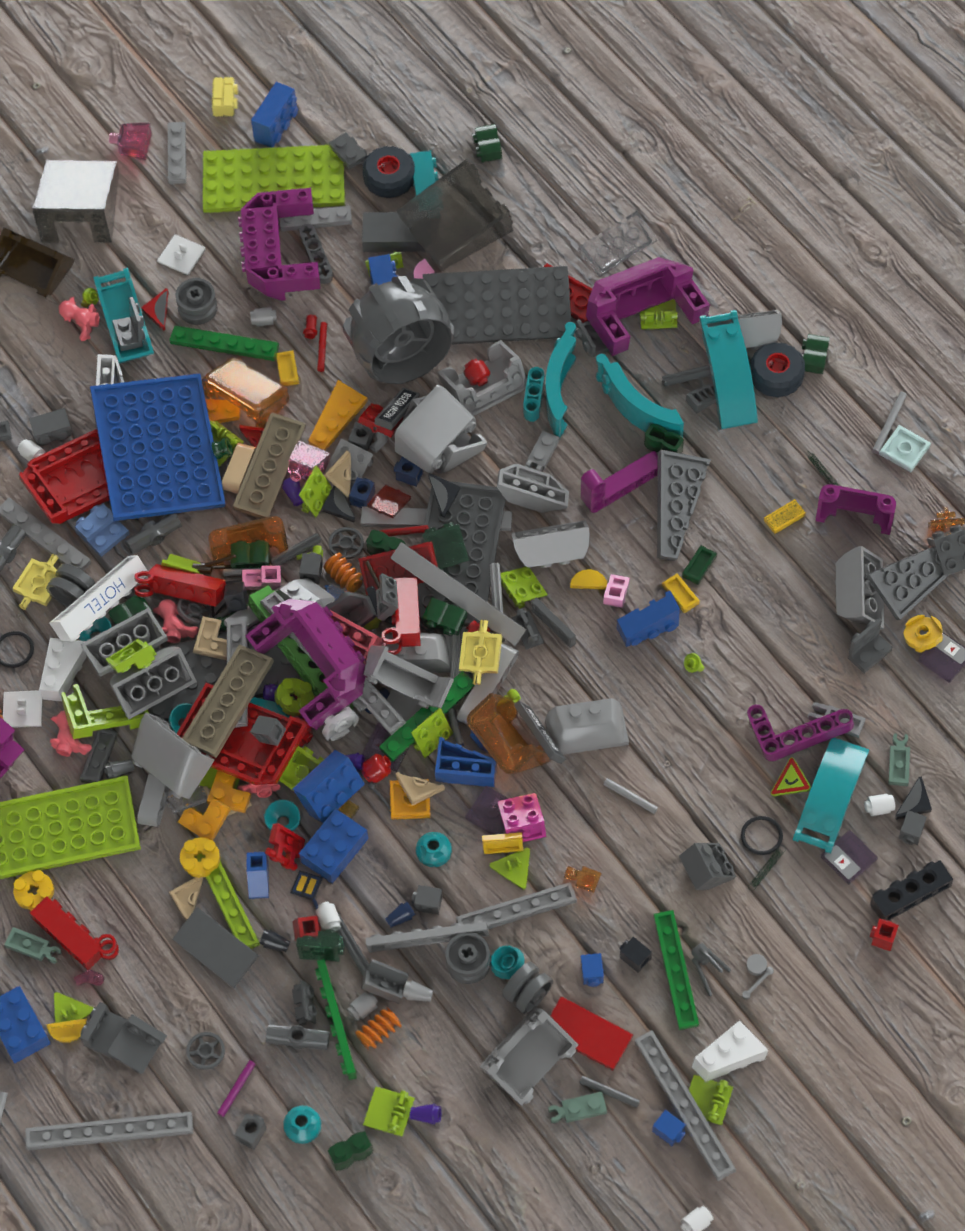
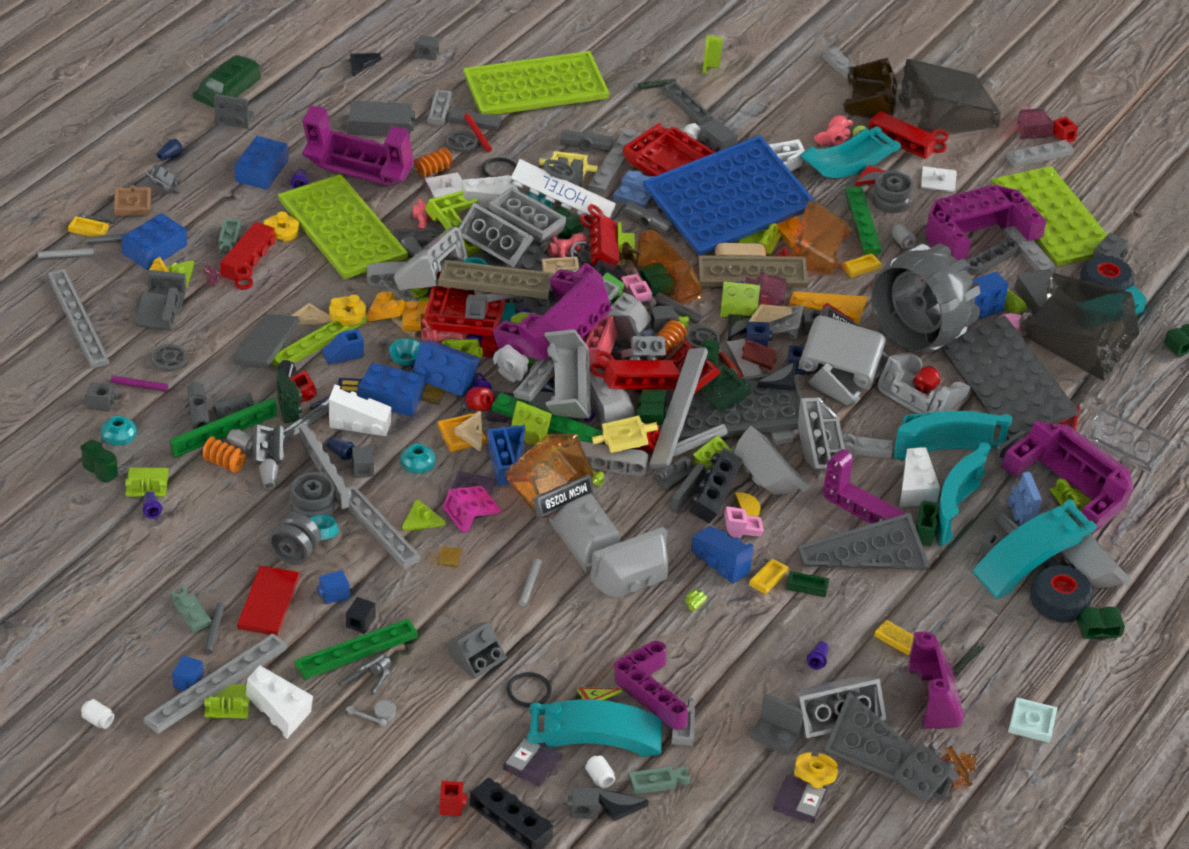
camera: 65 degrees right, 20 degrees down
(82, 590) = (559, 169): none -> dark grey wheel
(110, 257) = (910, 137): none -> red hinge
(130, 330) = (840, 153): dark grey bracket -> none
(136, 654) = (508, 211): lime plate -> none
(155, 116) = (1065, 129): none -> red brick
(222, 448) = (746, 234): dark green wheel -> none
(224, 96) = (1115, 165): light yellow brick -> none
(274, 115) = (1115, 193): blue brick -> none
(286, 841) = (381, 352): red plate -> none
(328, 916) = (317, 396): white brick -> none
(363, 886) = (357, 414): none -> white wedge
(502, 843) = (440, 498): yellow tile -> none
(528, 1055) = (225, 554): light grey windscreen -> none
(563, 597) = (716, 485): none -> black brick
(576, 856) = (450, 556): none -> clear yellow tile
(586, 878) = (427, 565): clear orange plate -> none
(601, 427) = (918, 479): none -> white wedge
(646, 700) = (631, 564): none -> light grey windscreen
(665, 353) = (1024, 500): none -> medium blue plate
(764, 866) = (487, 696): dark green piece -> none
(792, 586) = (818, 656): none -> dark purple cone
(889, 422) = (1058, 701): light grey bar -> none

